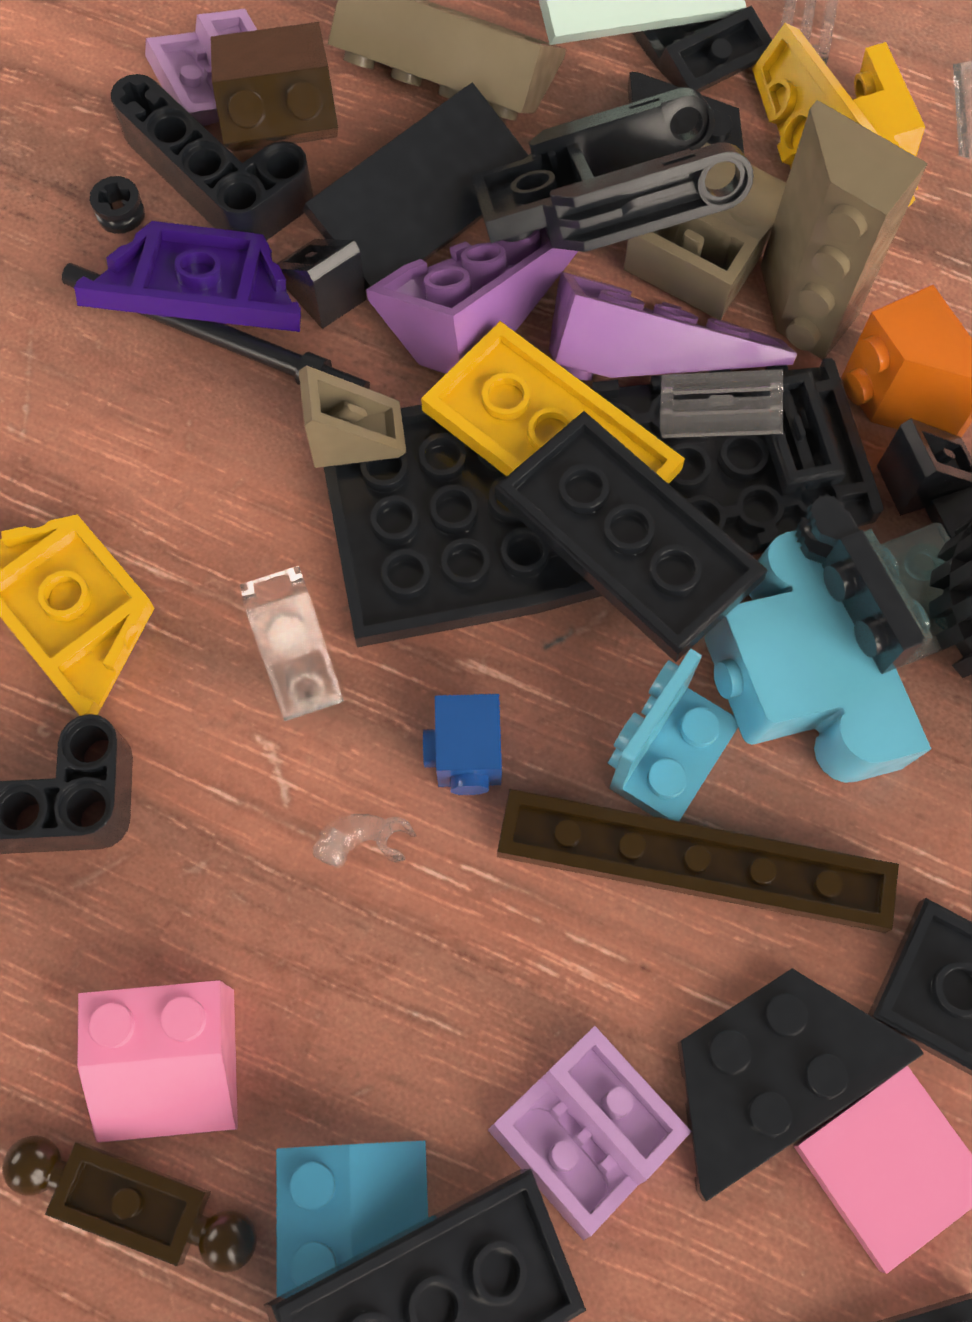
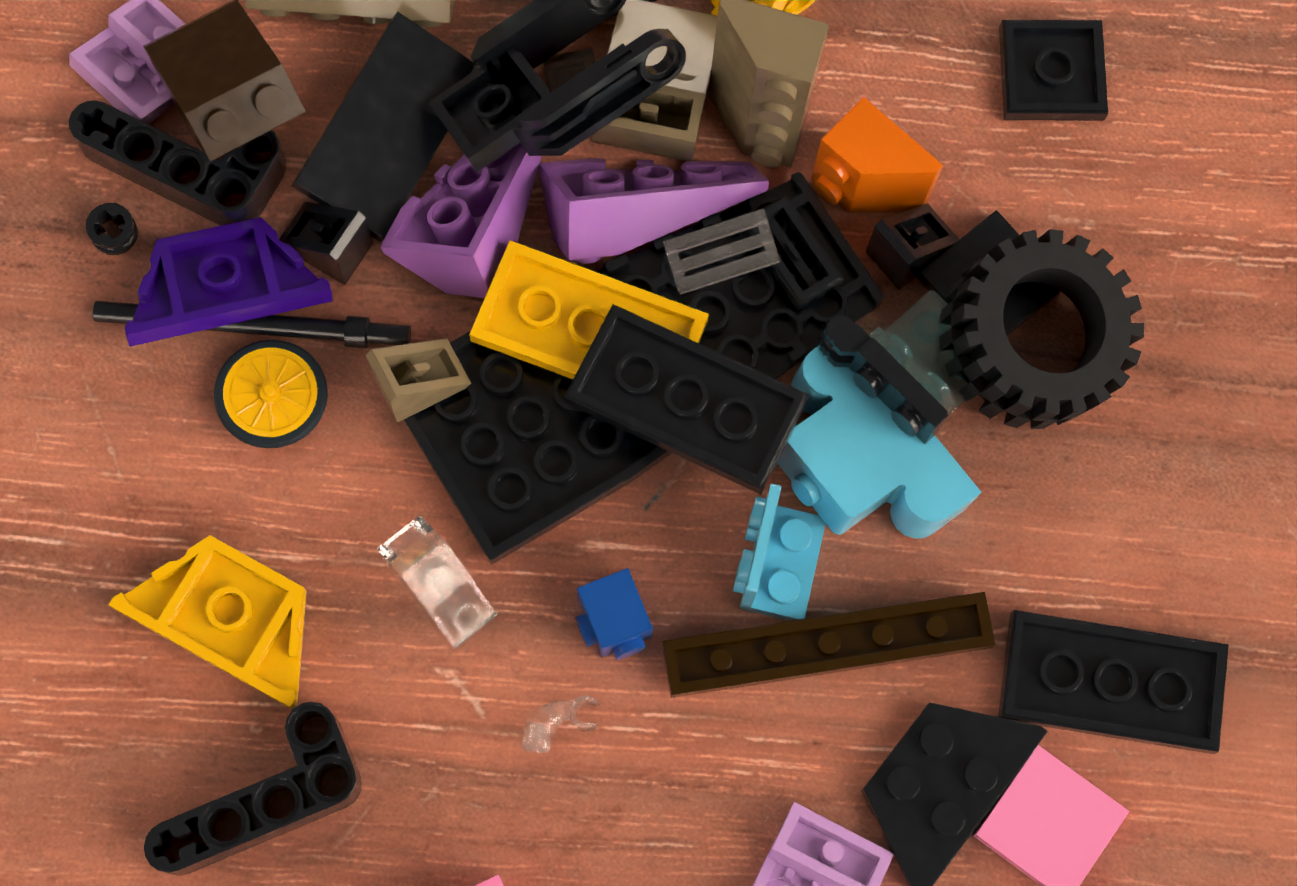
camera: 25 degrees left, 5 degrees up
(201, 402) = (270, 394): none -> yellow wheel

